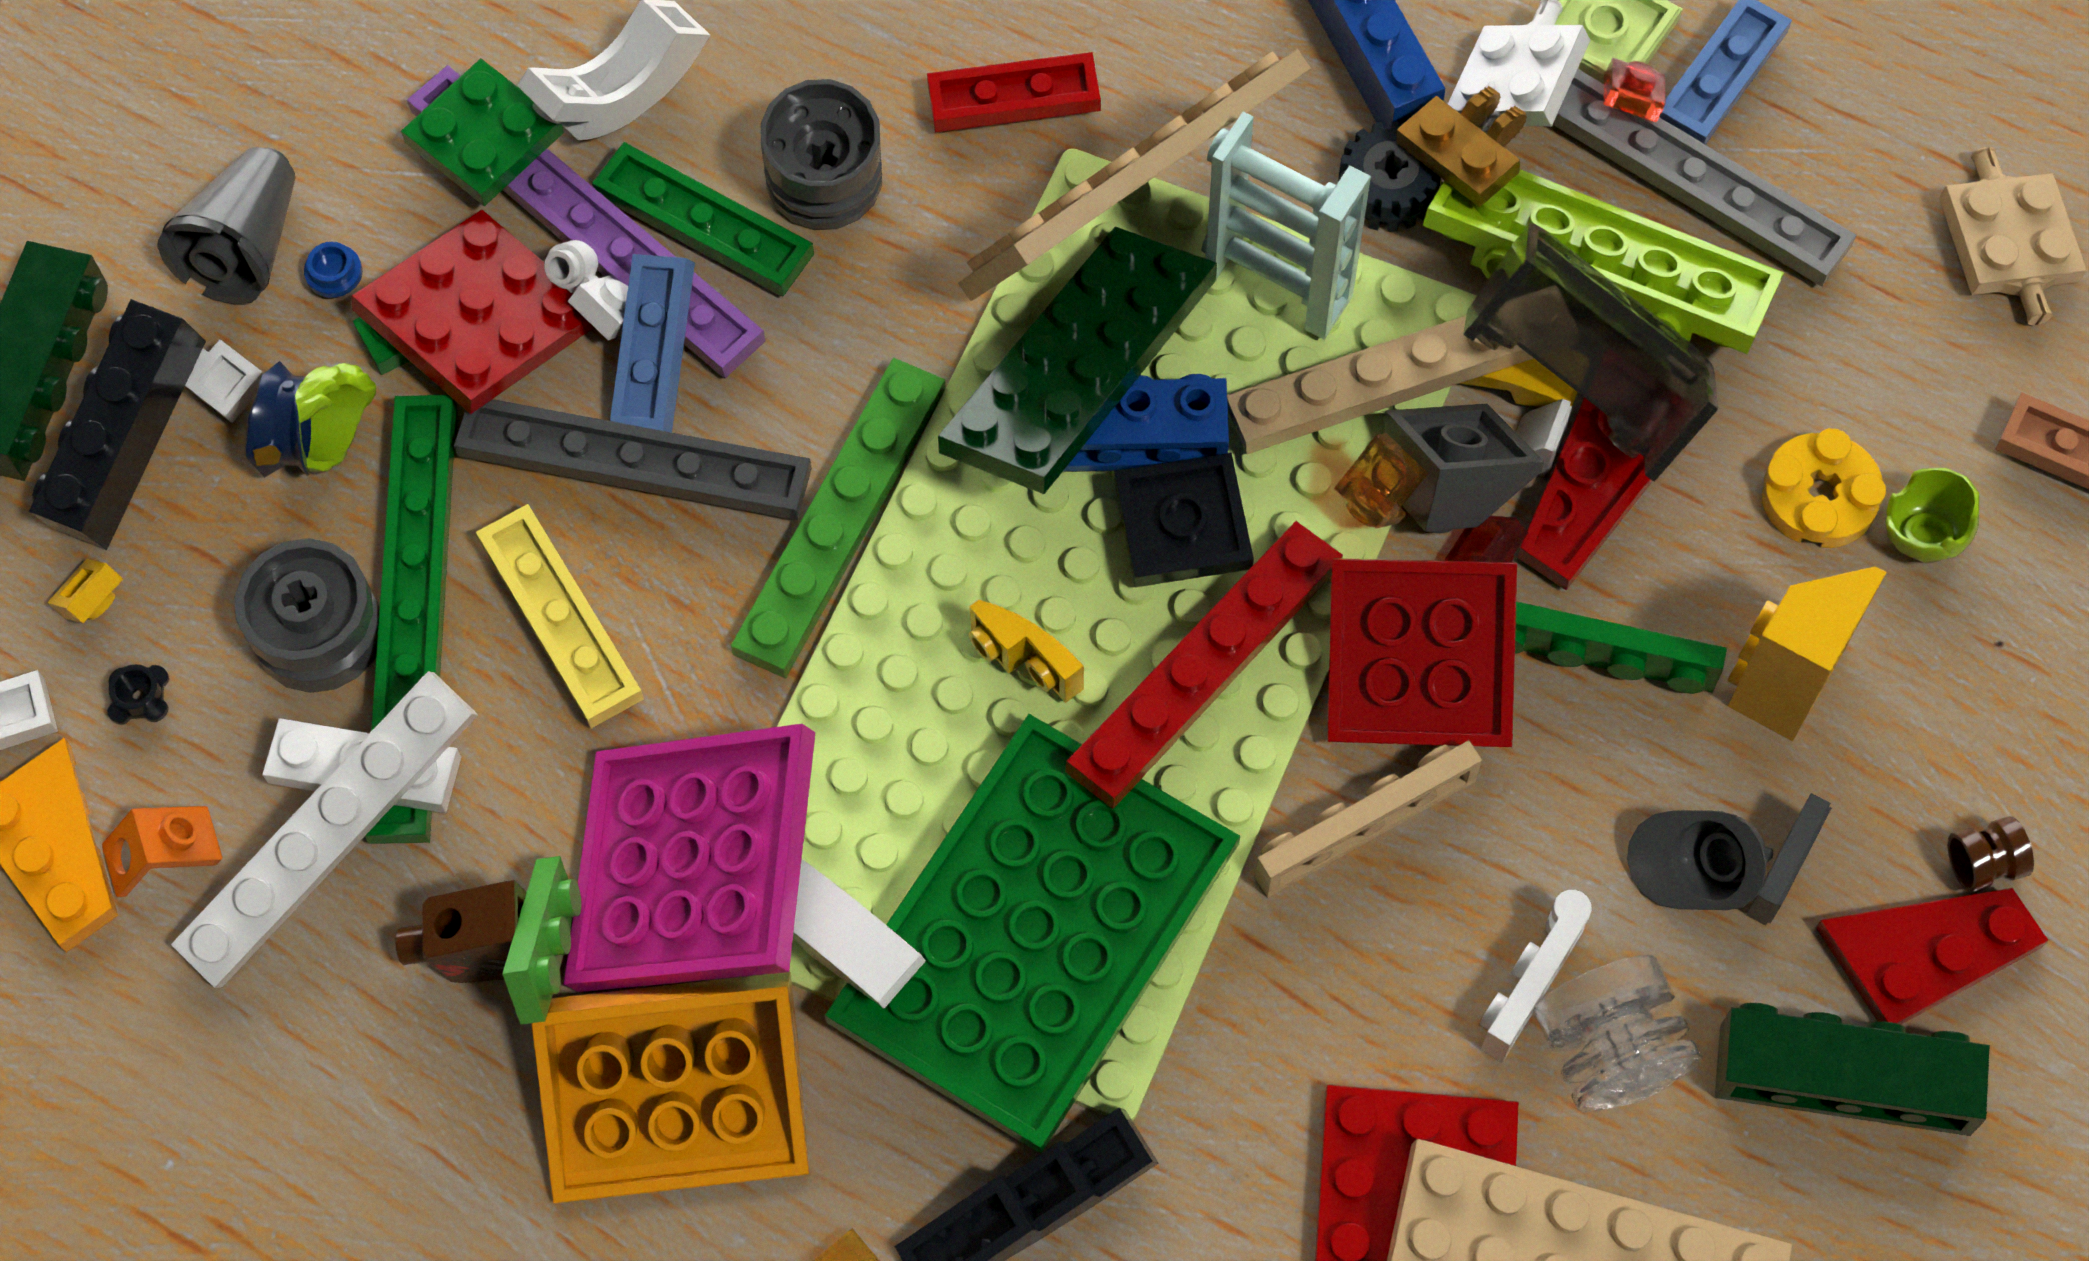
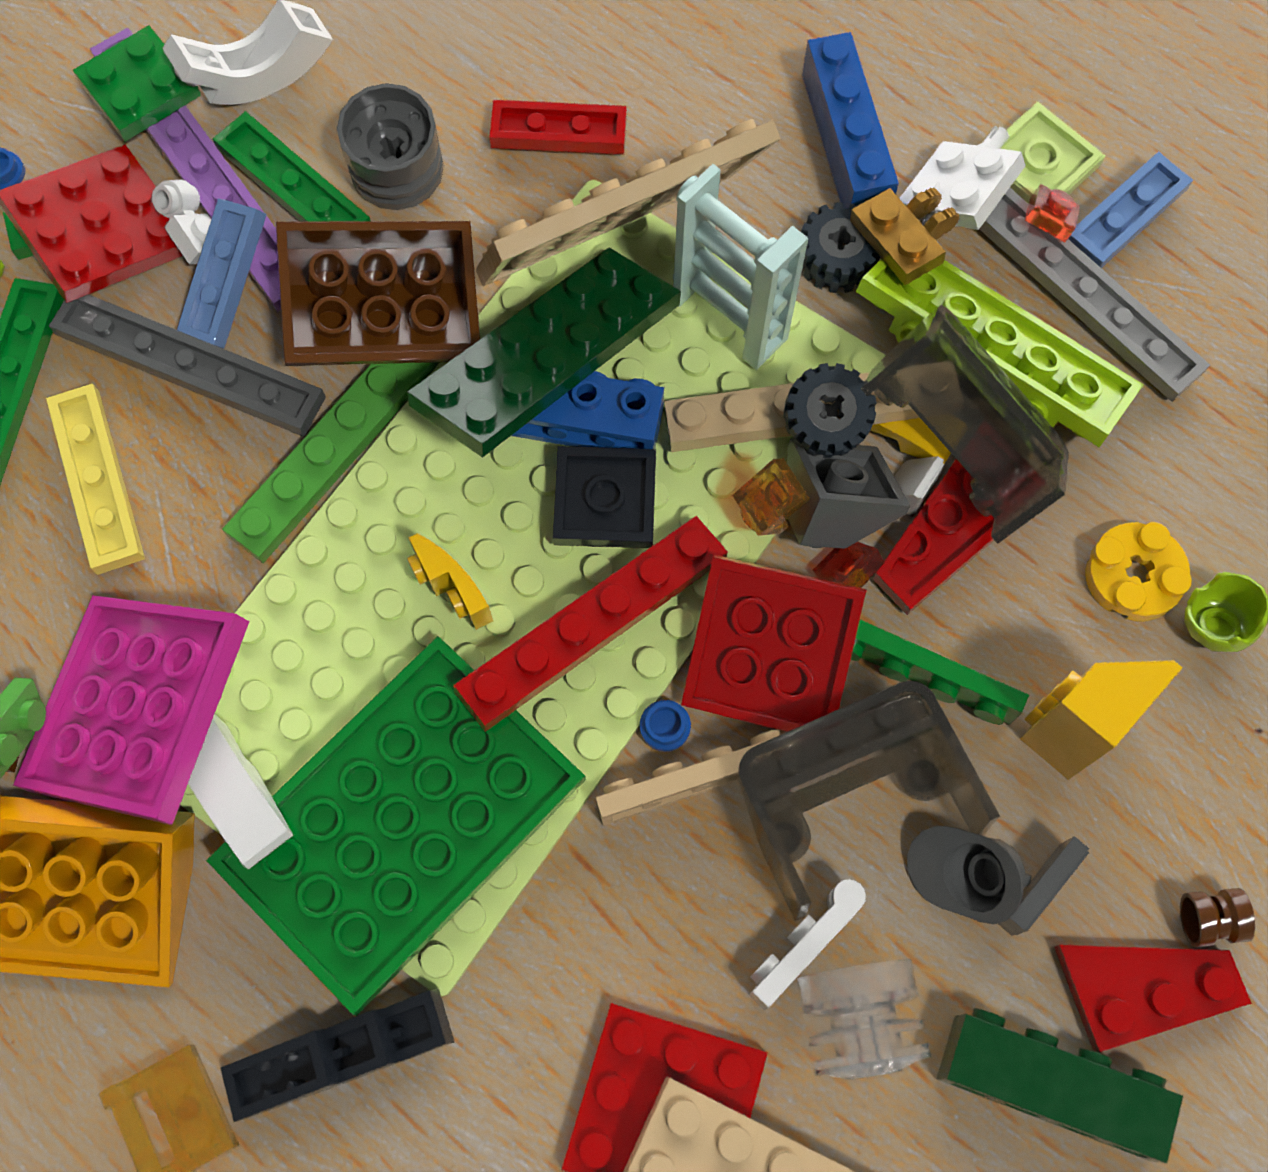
camera: 10 degrees right, 5 degrees up
(852, 330) = (376, 291): none -> reddish brown slope
(1314, 769) = (665, 725): none -> blue plate
(1415, 387) = (816, 423): none -> black wheel
(1532, 749) = (879, 735): none -> clear smoke windscreen

